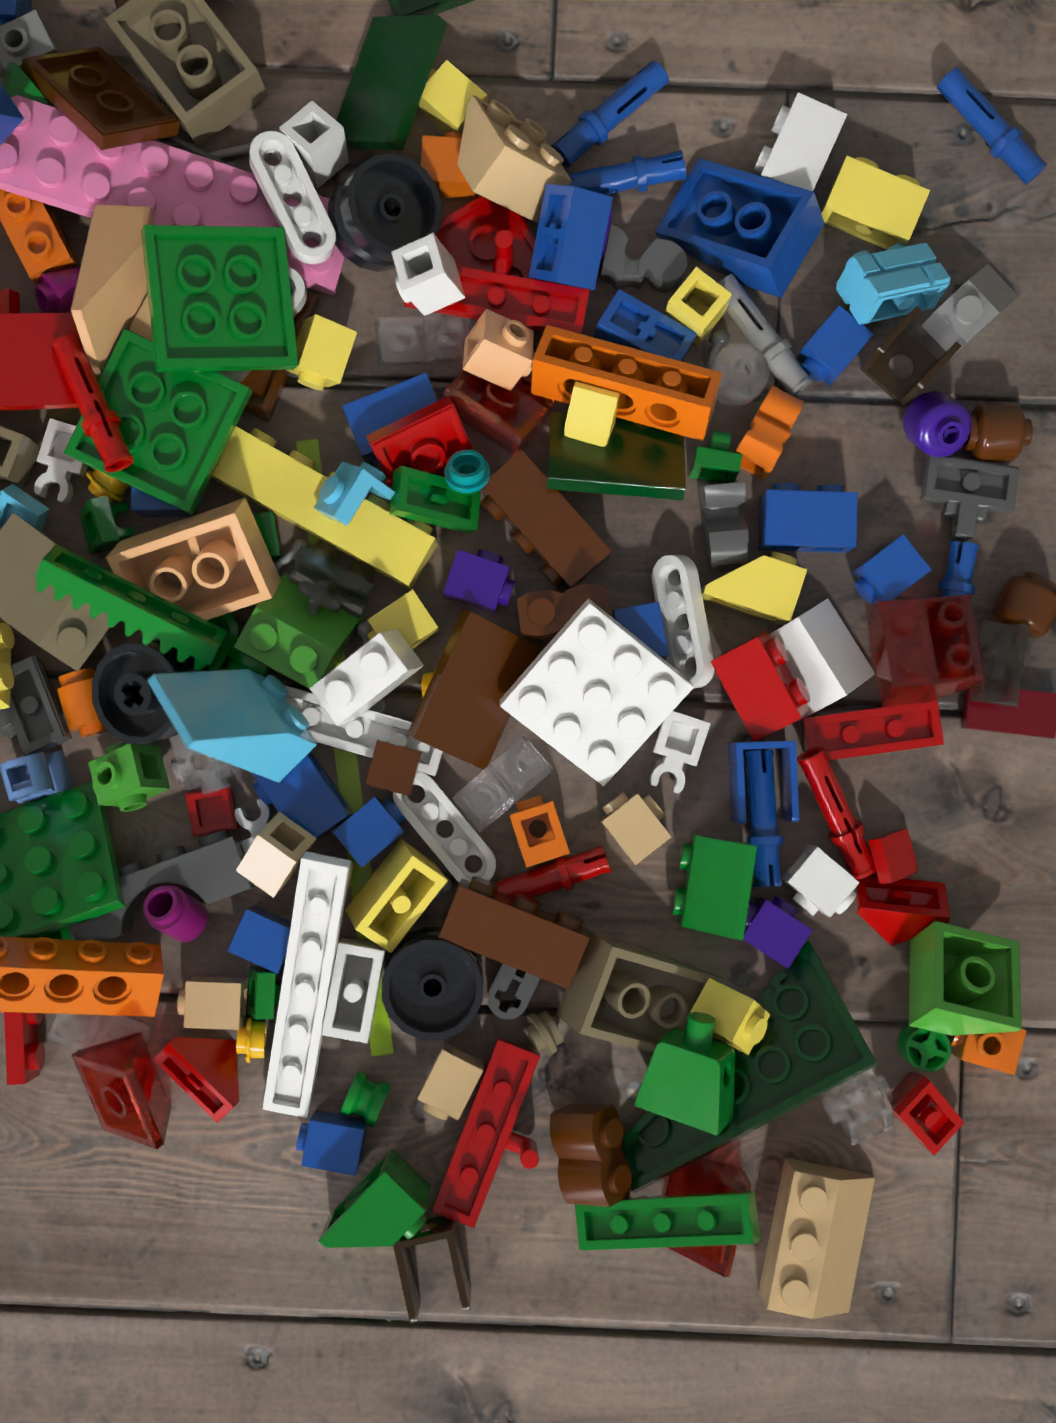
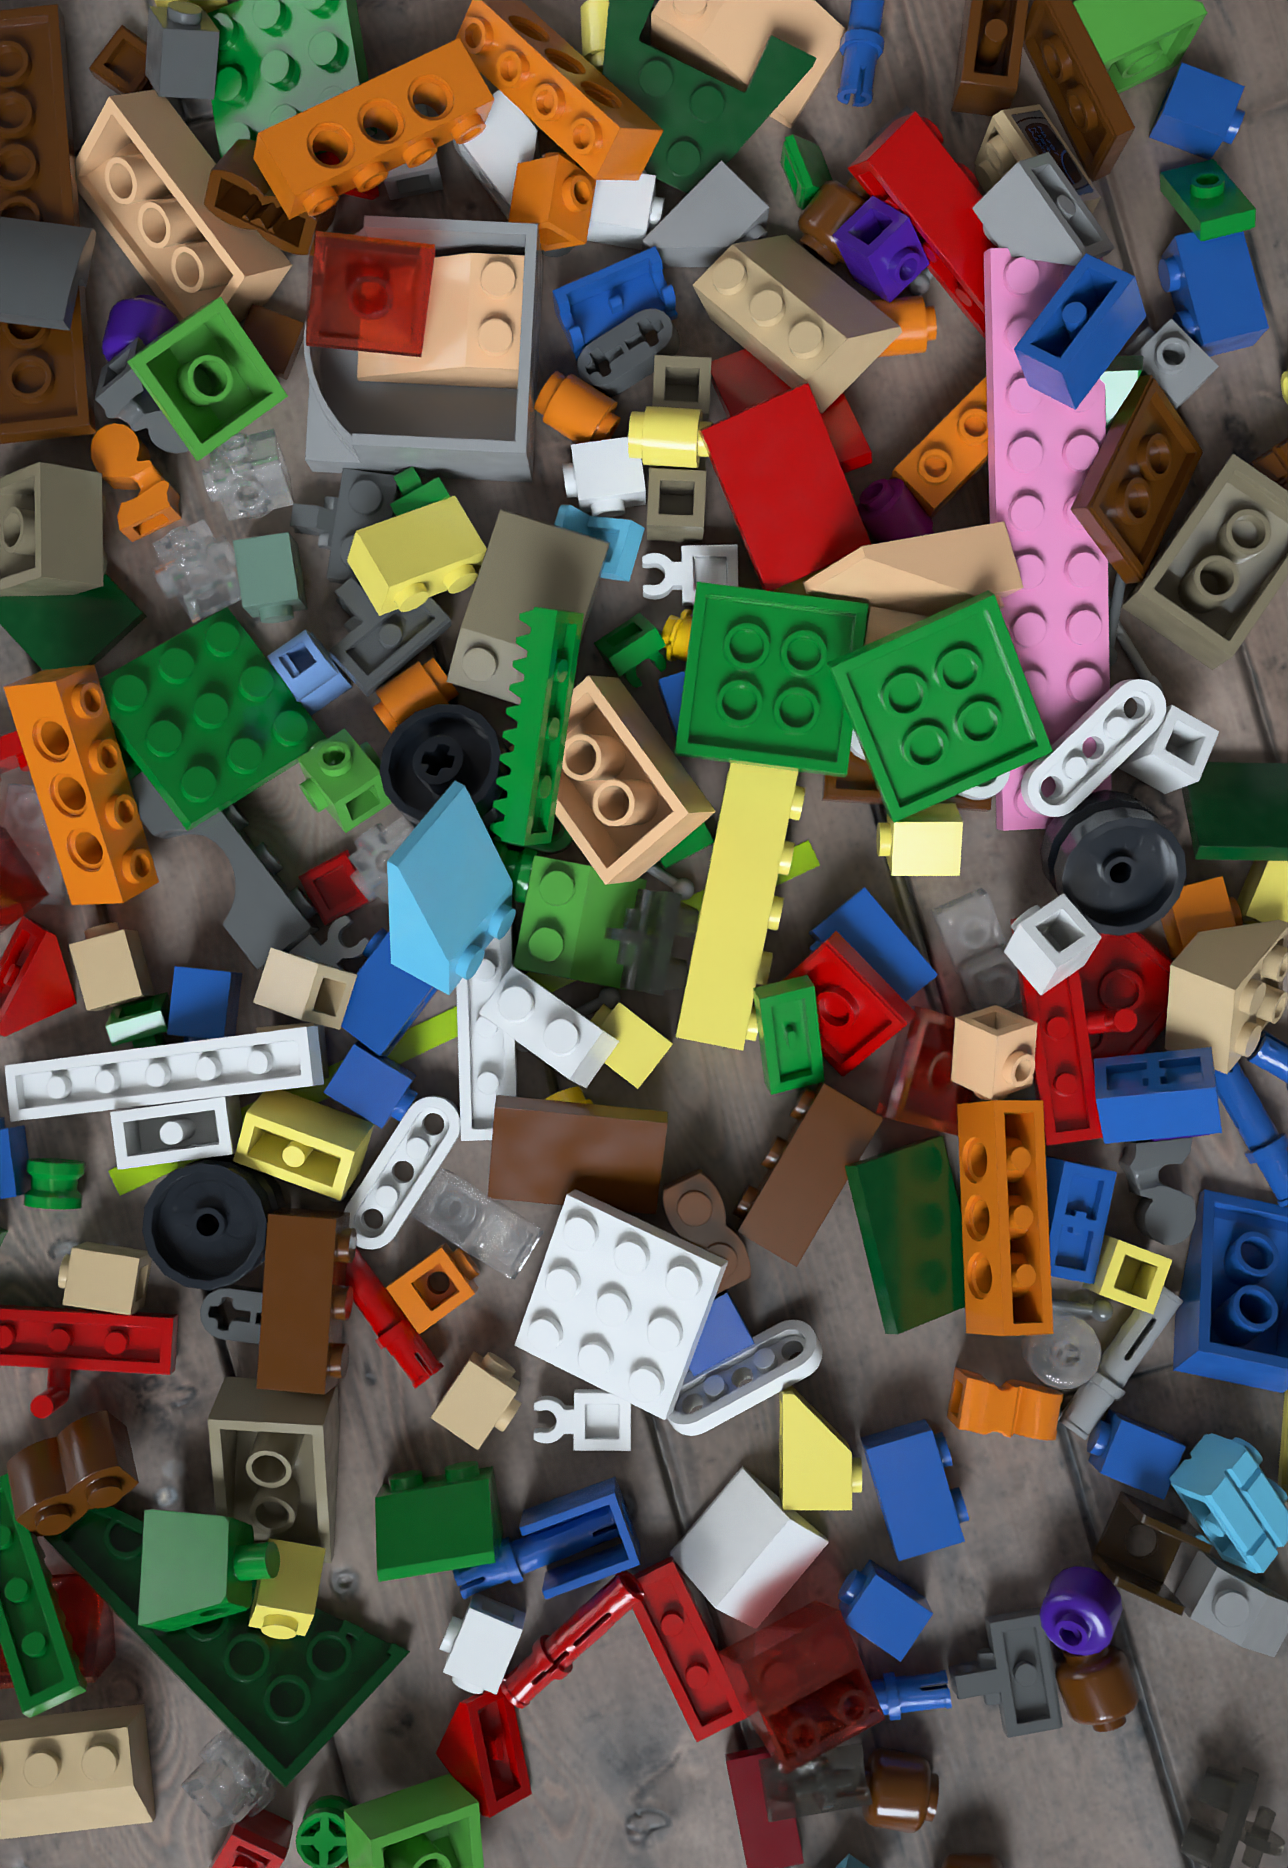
camera: 80 degrees right, 0 degrees up
(99, 420) = (748, 614): red pin -> none
(175, 913) = (200, 889): magenta brick -> none
(252, 1039) = (81, 1026): yellow plate -> none
(347, 488) = (763, 931): medium azure bracket -> none
(393, 768) = (453, 1090): reddish brown tile -> none
(467, 471) = (846, 1062): teal plate -> none
(479, 581) = (711, 1118): dark purple brick -> none
(543, 1032) = (199, 1368): dark tan plate -> none
(591, 414) = (952, 1189): light yellow slope -> none
(715, 462) = (948, 1354): green tile -> none
(723, 526) = (868, 1392): dark grey leg -> none
(762, 685) = (695, 1499): red brick -> none
(775, 930) = (407, 1611): dark purple brick -> none
(893, 856) = (542, 1722): red tile -> none

